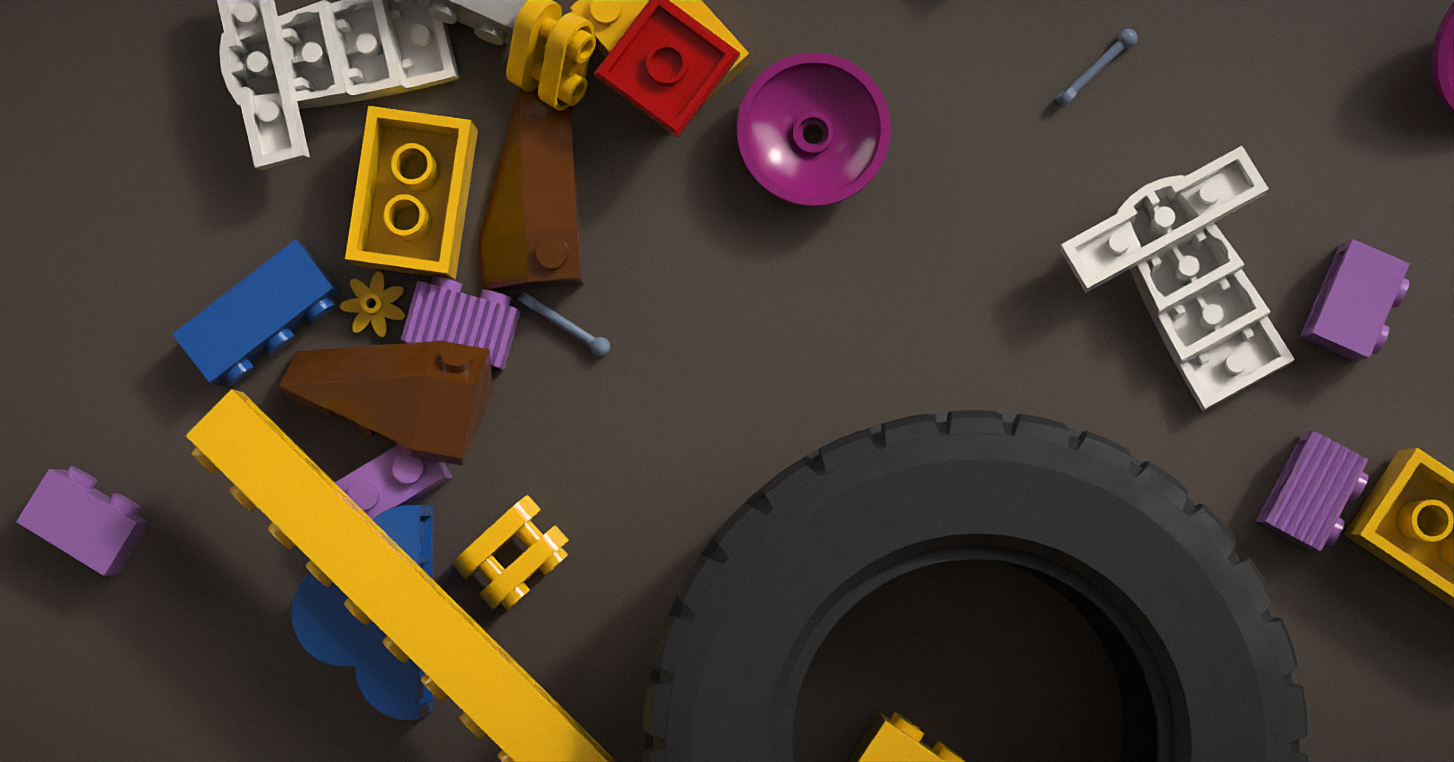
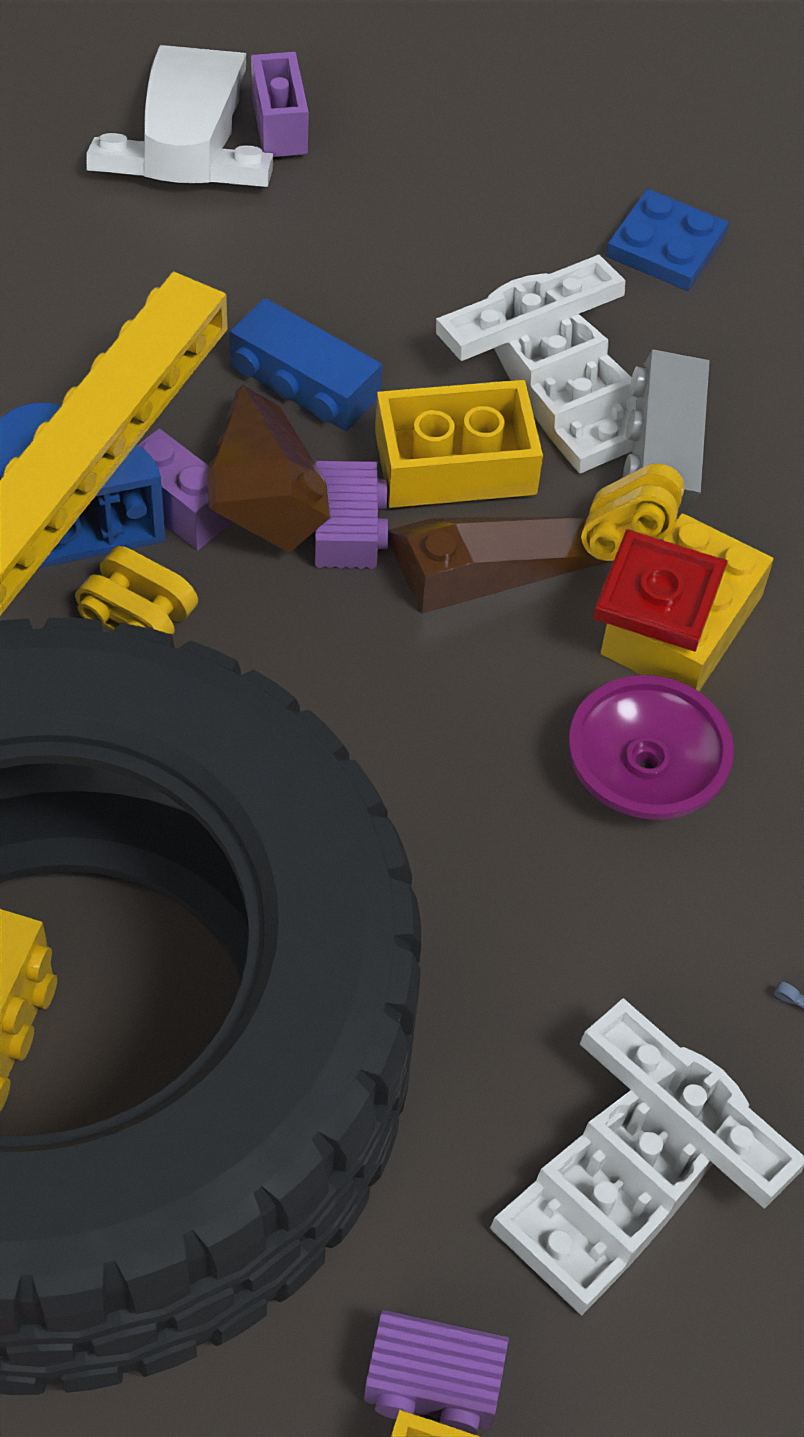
camera: 65 degrees right, 30 degrees down
(84, 520) = (77, 285): medium lavender brick -> none
(382, 308) = (343, 448): yellow plant -> none
(599, 346) = (365, 634): sand blue hinge -> none
(1356, 301) = (682, 1361): medium lavender brick -> none

